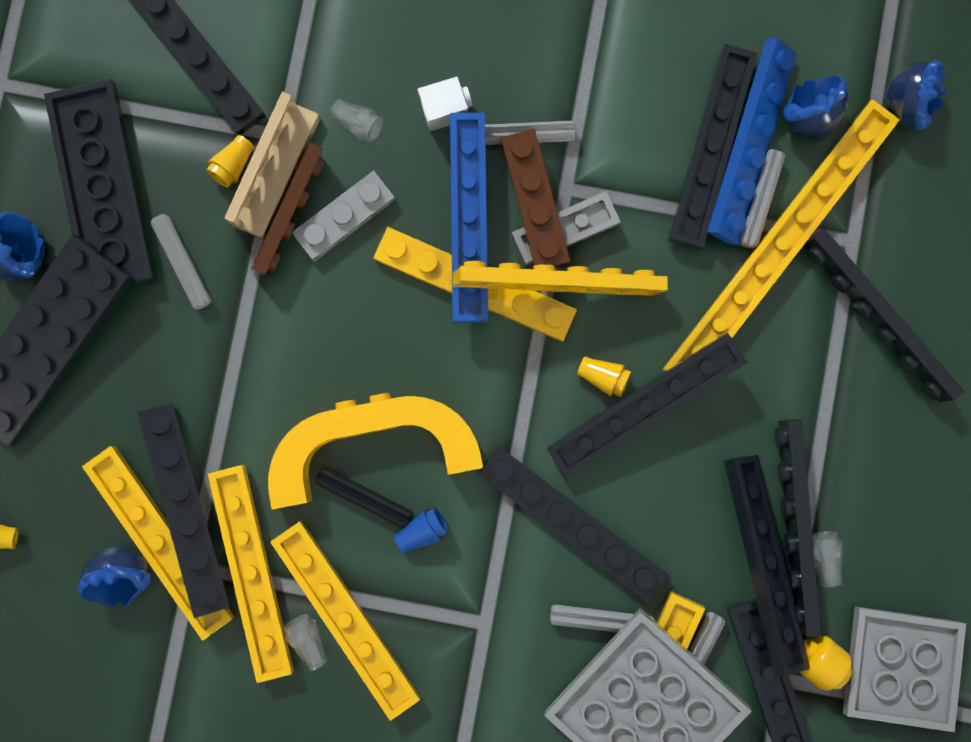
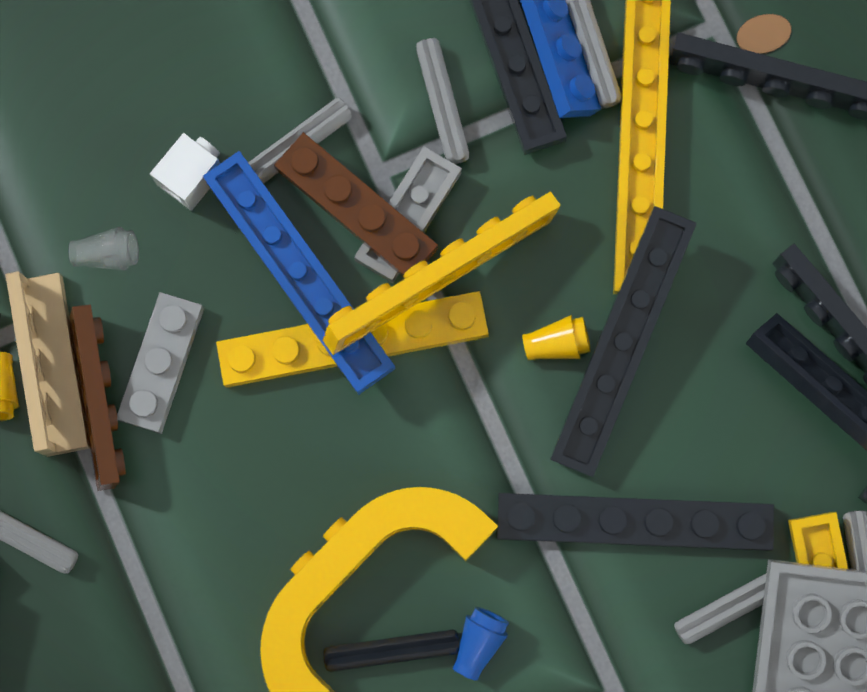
camera: 30 degrees left, 5 degrees down
(639, 169) = (442, 100): none -> light grey axle
(880, 267) = (764, 33): none -> medium nougat sticker

